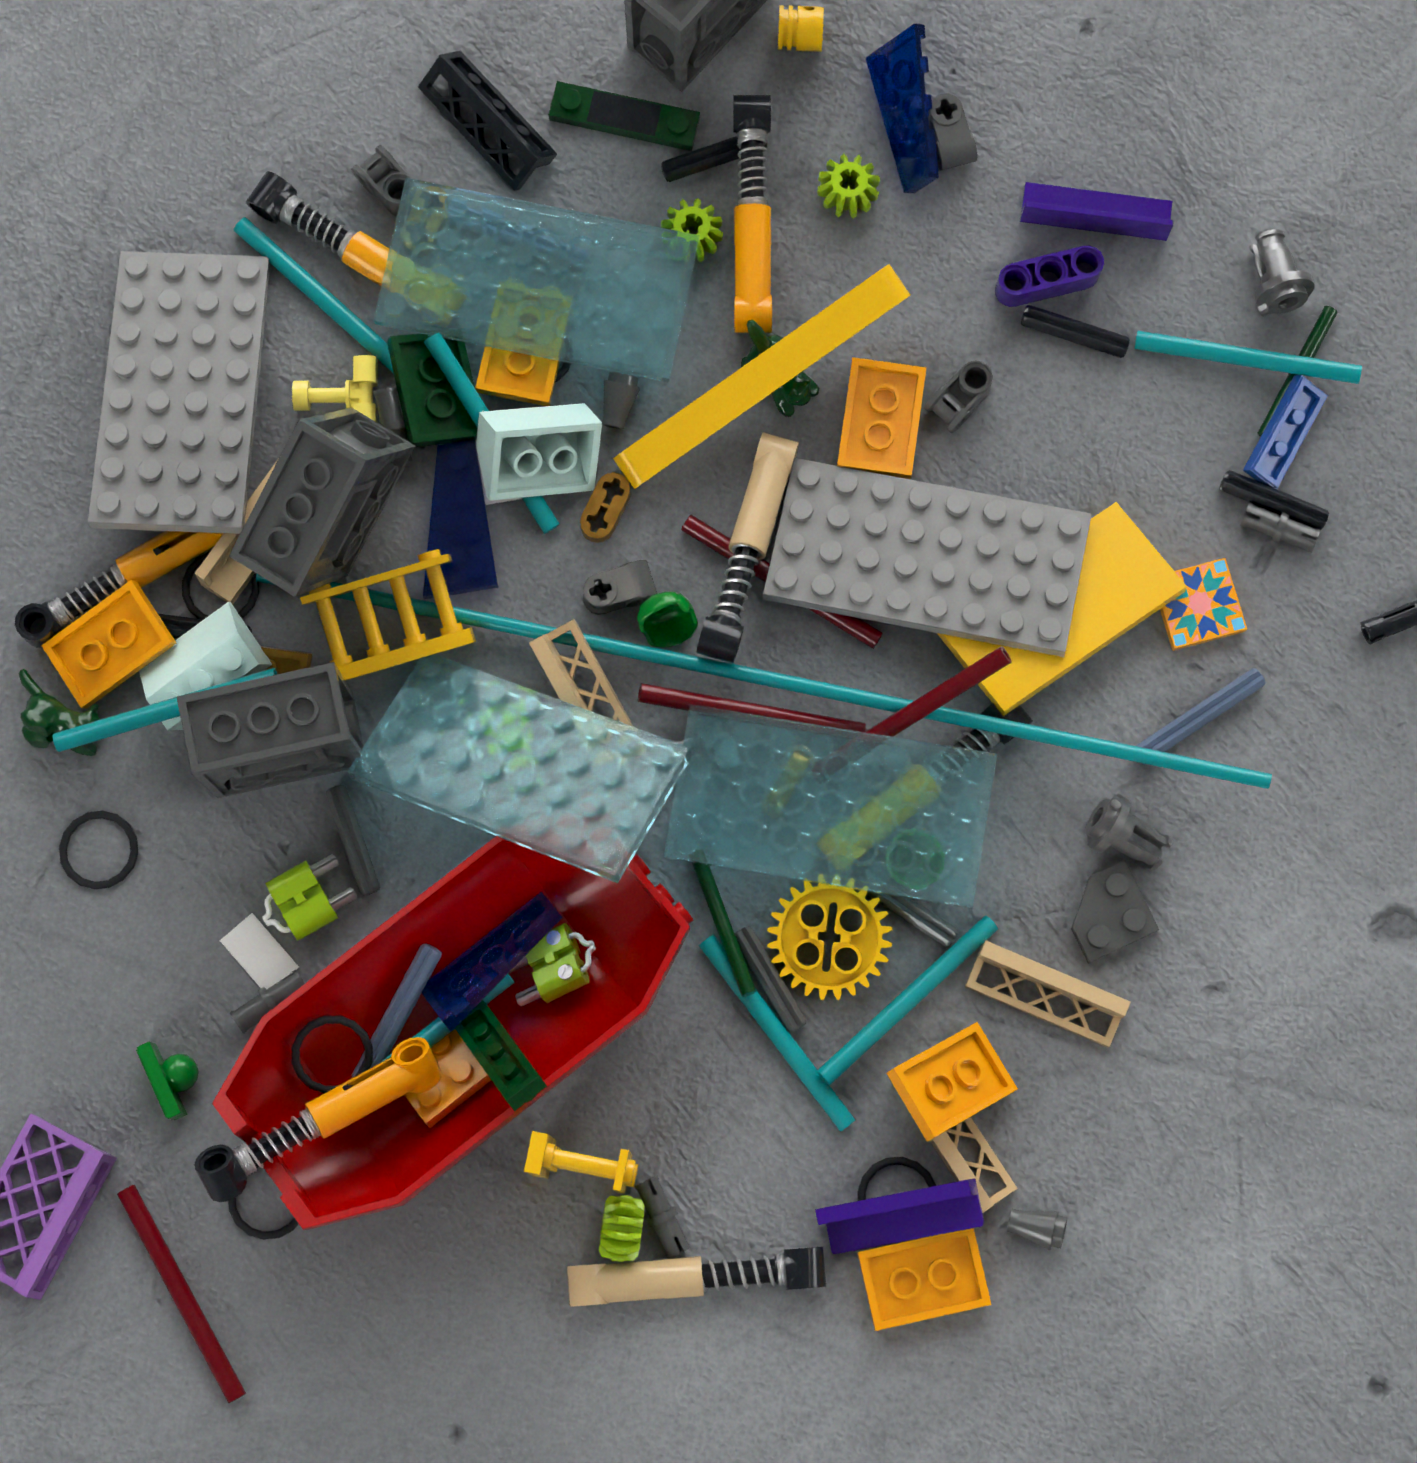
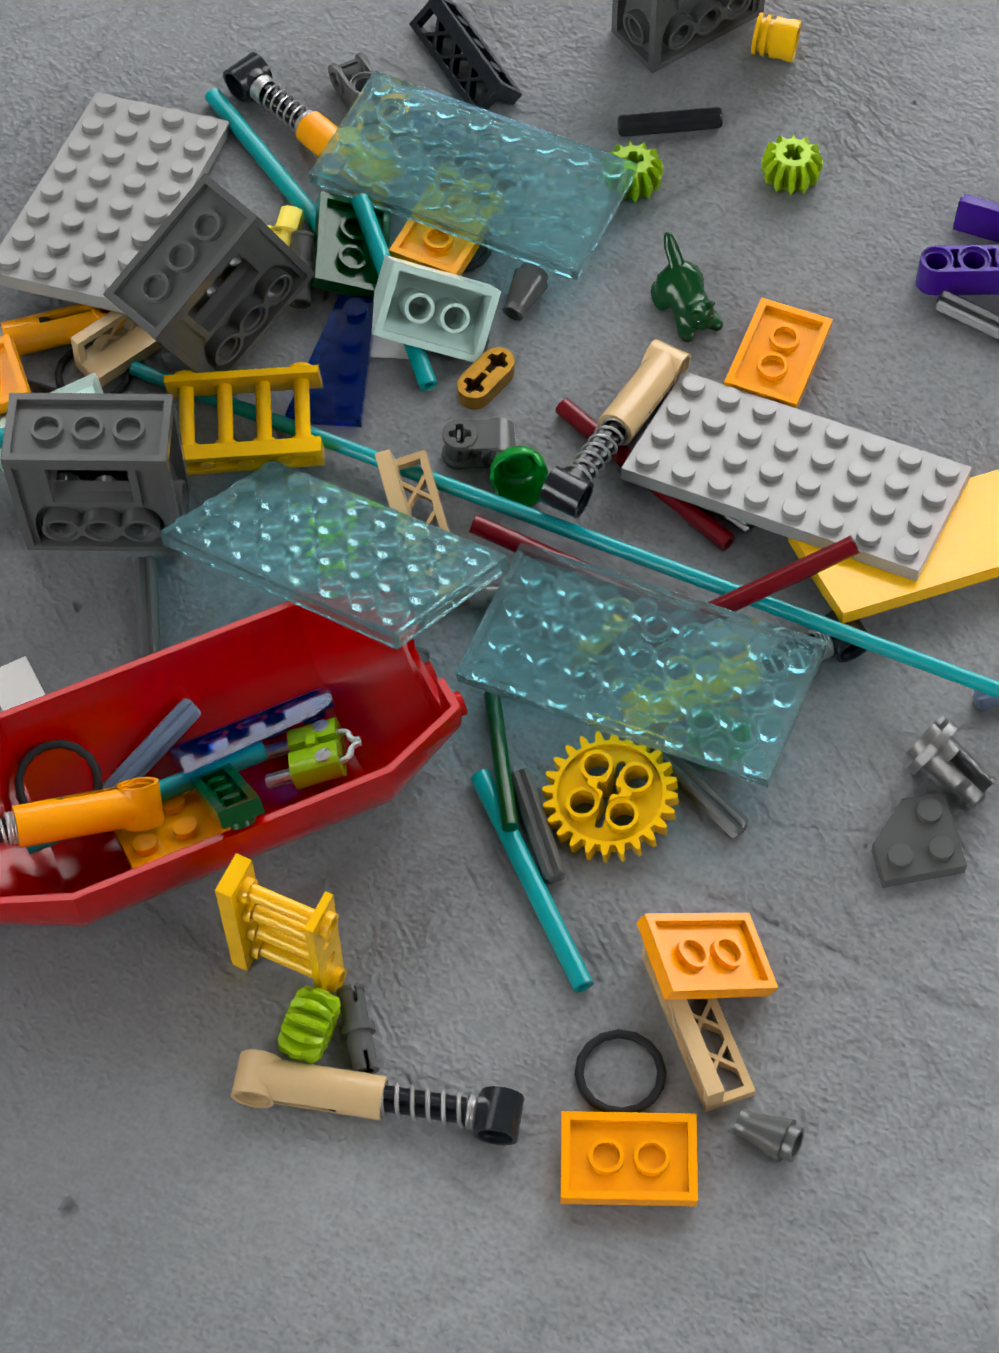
camera: 15 degrees right, 20 degrees down
(303, 899) = (80, 648): lime piece -> none
(624, 116) = (593, 78): dark green plate -> none
(752, 215) = (693, 165): piece -> none
(762, 376) = (666, 283): yellow beam -> none
(900, 90) = (860, 109): clear blue wing -> none
(902, 1216) = (620, 1077): dark purple panel -> none
(907, 1000) = (676, 874): teal piece -> none
(953, 137) = (900, 140): dark grey piece -> none
(957, 400) = (862, 348): dark grey piece -> none
(1053, 980) = (841, 889): tan fence -> none

